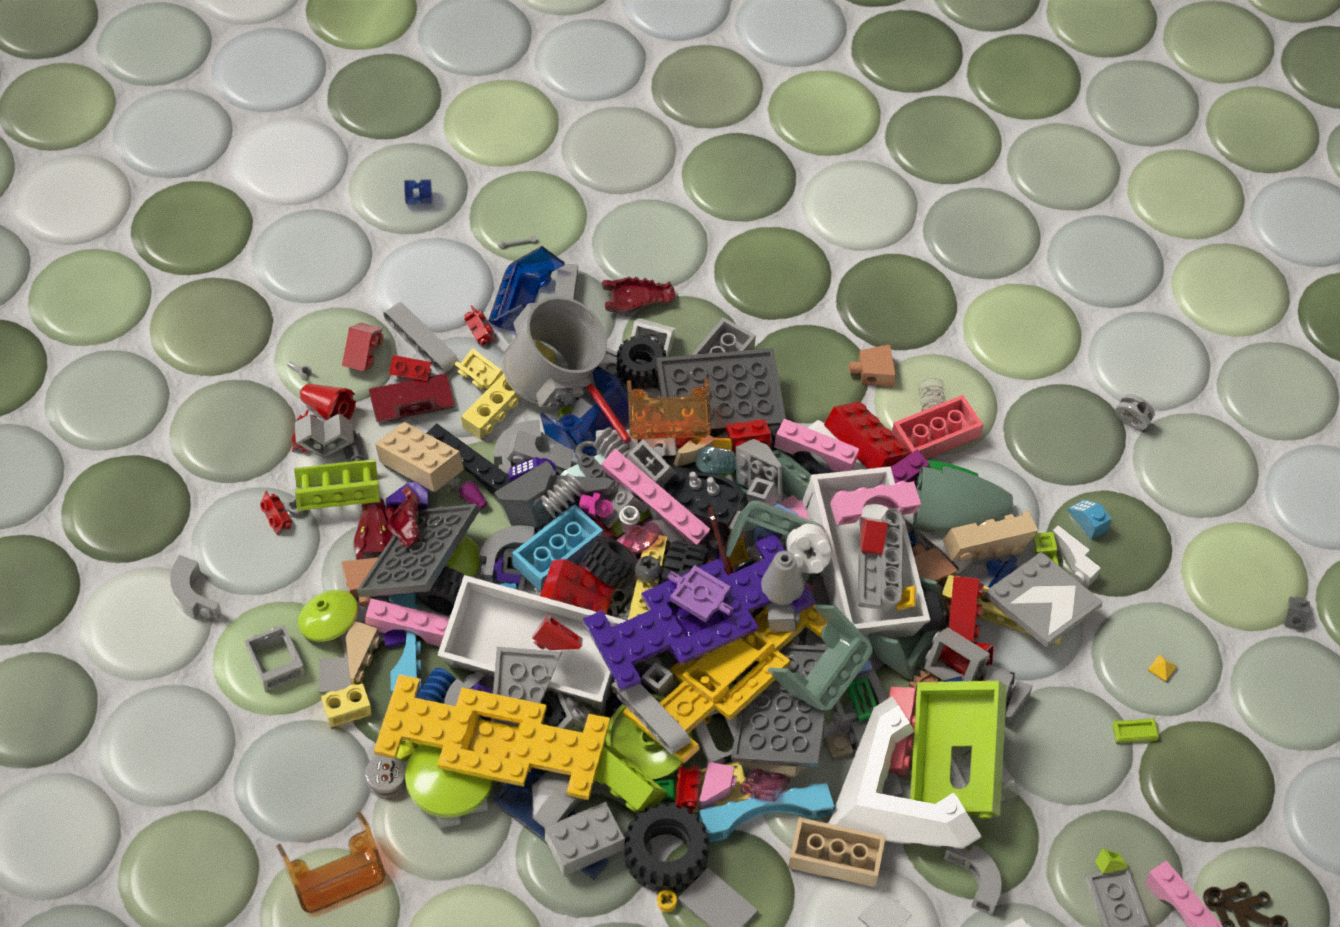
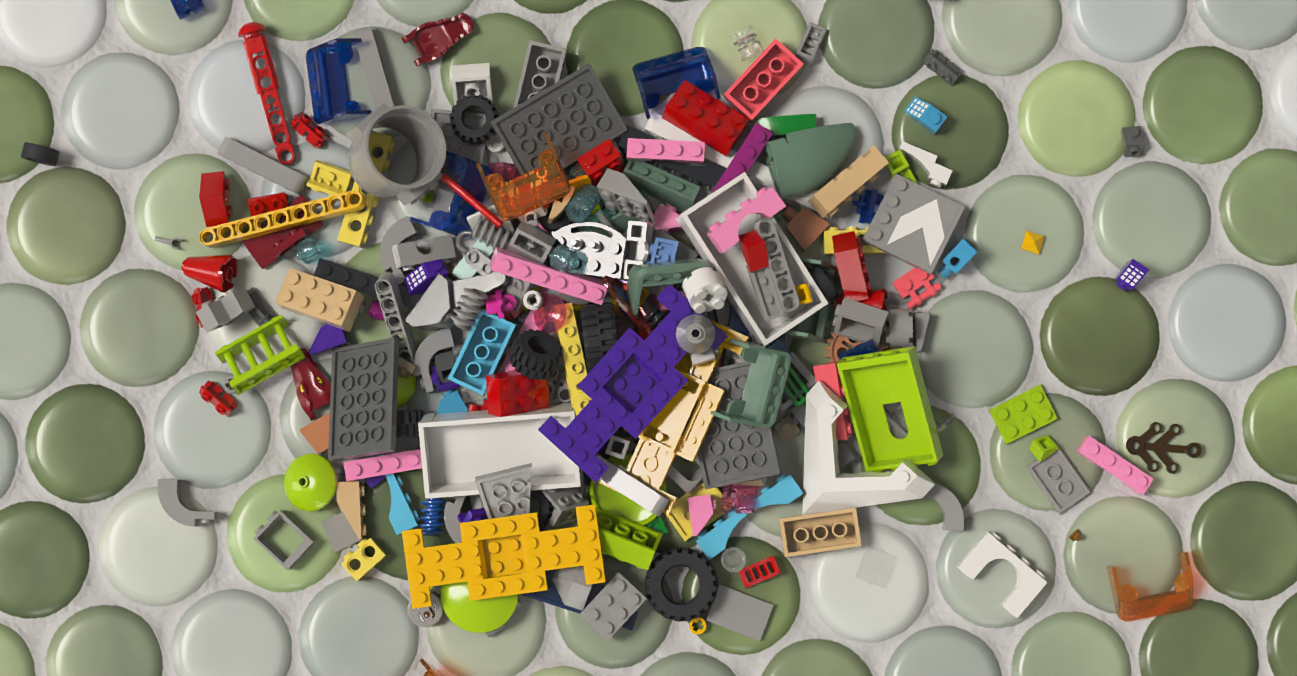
camera: 15 degrees left, 30 degrees up
(220, 256) = (40, 154): none -> black tyre
(404, 519) = (335, 371): dark red animal -> none
(417, 380) = (291, 219): none -> yellow beam
(429, 417) = (310, 250): none -> clear light blue head
(463, 243) = (255, 44): none -> red piece
(471, 543) = (405, 368): none -> dark tan plate
(481, 488) = (395, 310): none -> light grey beam
(533, 239) = (289, 27): light grey hinge -> none
(555, 636) = (522, 450): red slope -> none
(648, 569) = (567, 360): dark grey piece -> none
(677, 484) = (563, 258): none -> clear light blue head
(686, 792) = (679, 532): red hinge -> none
(700, 593) = (629, 373): medium lavender plate -> none
(732, 845) = (733, 559): none -> clear wheel
(755, 865) = (771, 559): none -> red slope
(828, 394) = (667, 73): none -> clear blue windscreen
(874, 366) = (683, 29): nougat torso -> none
(997, 421) = (807, 55): none -> light grey slope
(1027, 657) = (912, 281): none -> coral plate
(1080, 647) = (963, 251): none -> dark azure torso
(1099, 823) = (1022, 414): none -> lime plate
(1118, 482) = (935, 62): none -> dark grey hinge
(1135, 730) = (1027, 314): lime tile -> none
(1259, 726) = (1130, 275): none -> dark purple slope

